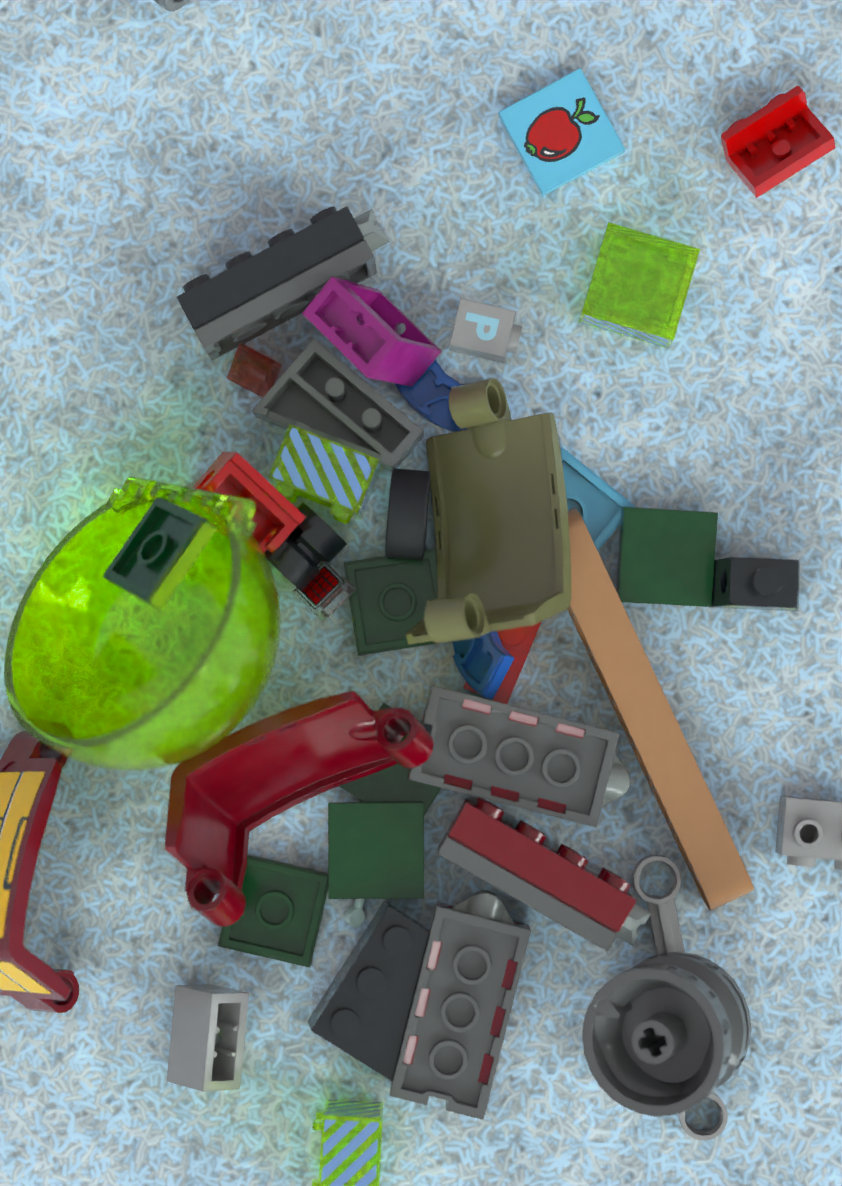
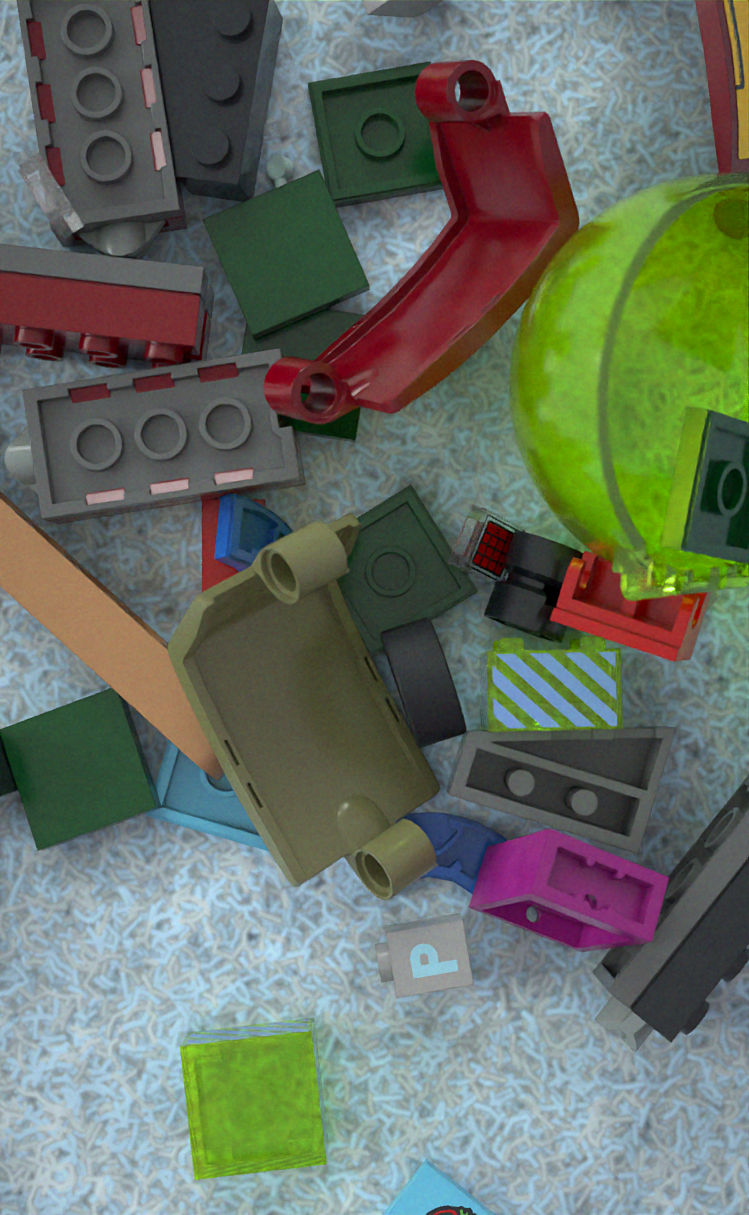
camera: 145 degrees right, 0 degrees up
(254, 370) = (693, 784): clear red slope -> none
(521, 948) = (49, 196): none -> clear tile

